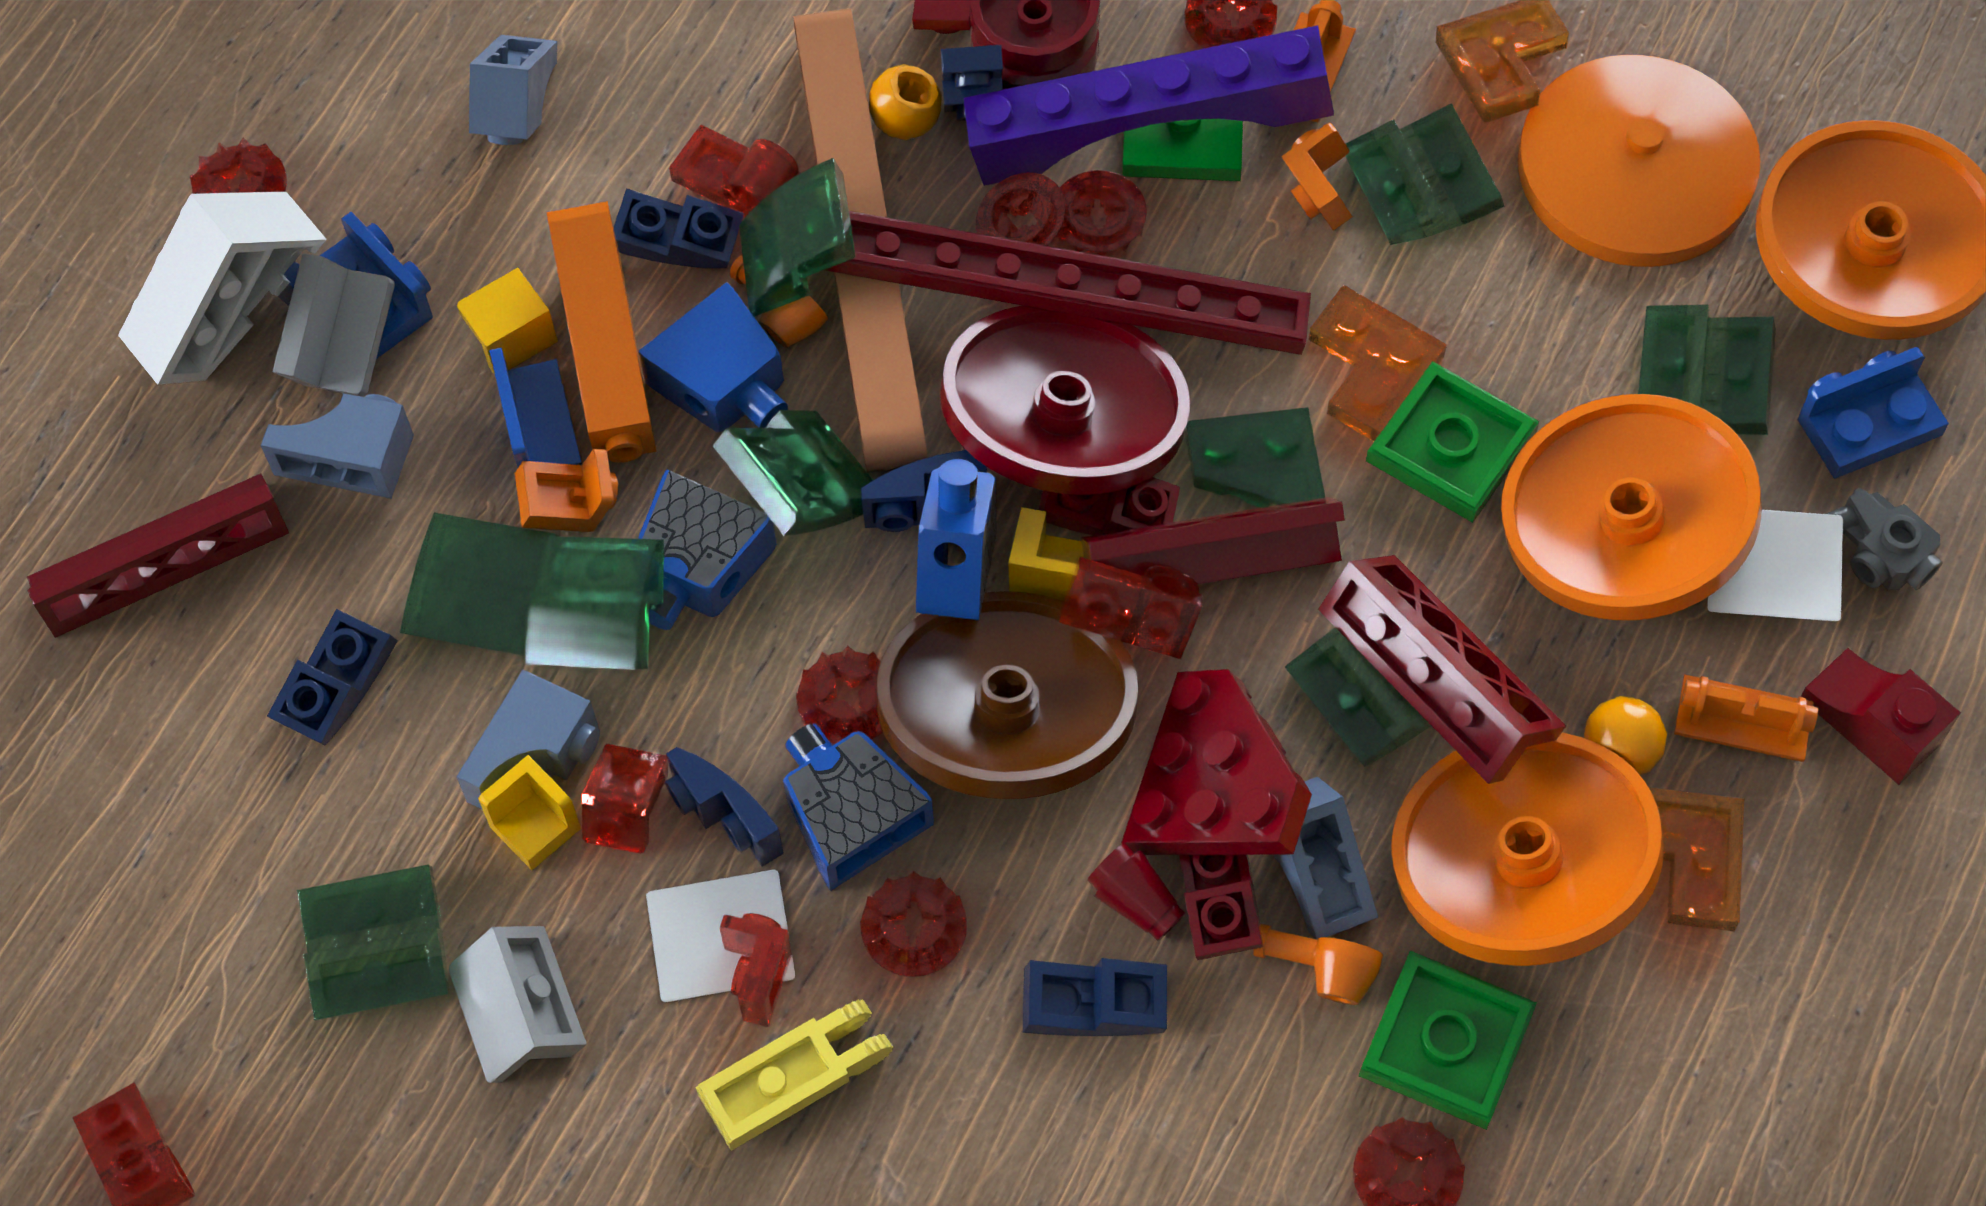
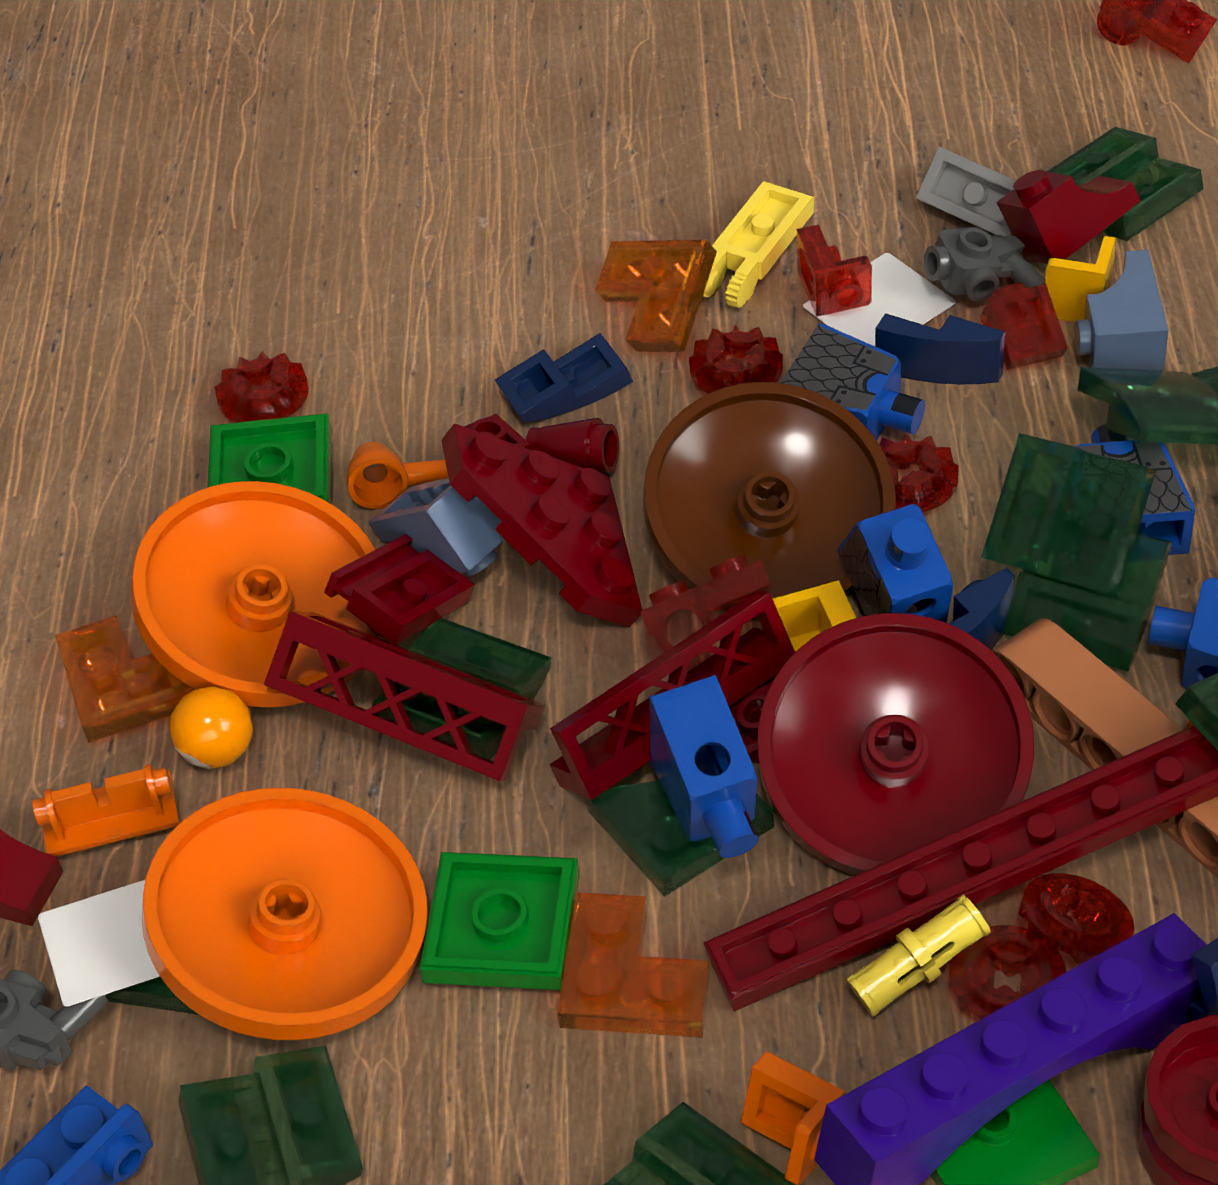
camera: 155 degrees right, 15 degrees down
(473, 890) = (1058, 216): none -> dark red arch
(609, 900) = (973, 261): none -> dark grey piece
(786, 485) = (1068, 514): none -> clear green slope
(921, 1050) = (666, 283): none -> clear orange plate
(1157, 244) = (918, 955): none -> light yellow pin
(1240, 399) = (704, 765): none -> blue torso
(1396, 778) = (399, 589): none -> dark red plate

